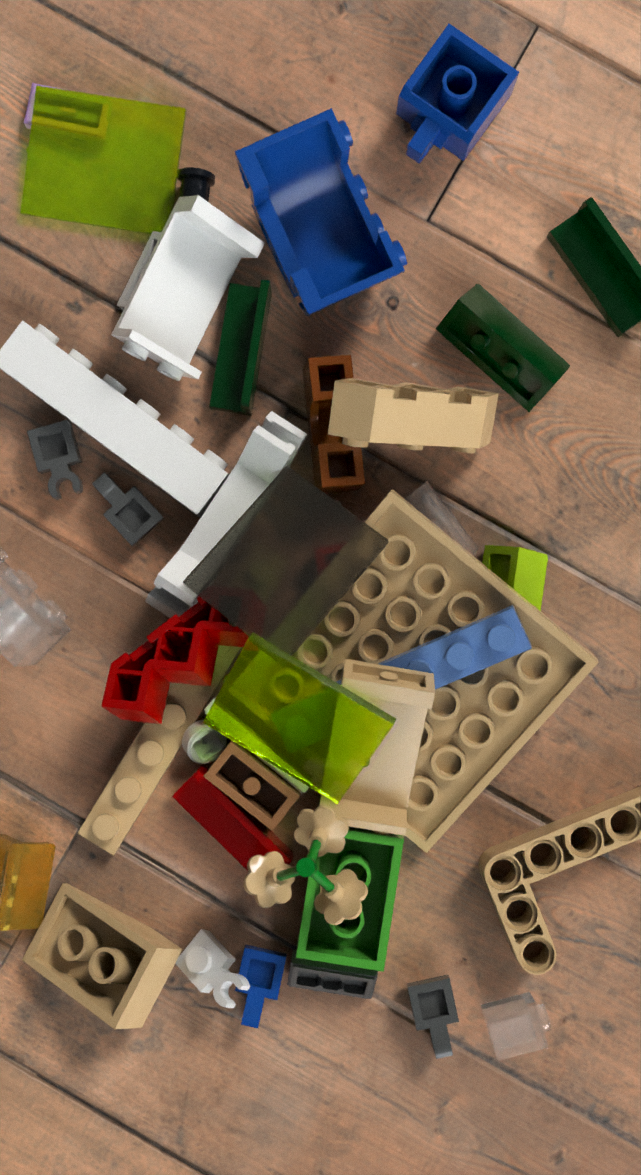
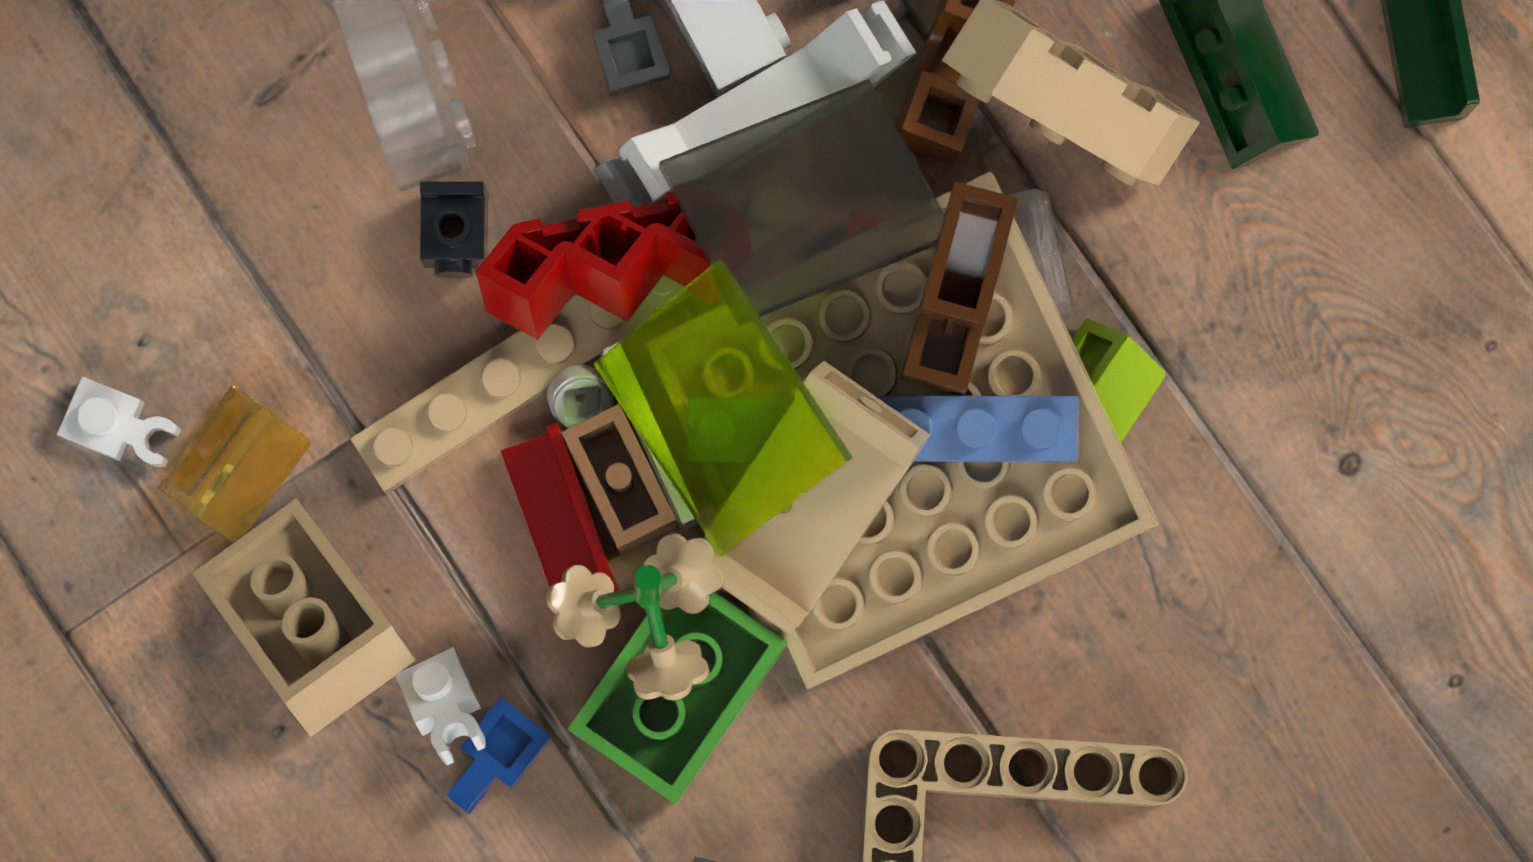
camera: 25 degrees right, 5 degrees down
(83, 658) = (460, 201): none -> black brick
(331, 978) = (601, 791): dark grey plate -> none
(408, 574) = (959, 289): none -> reddish brown slope

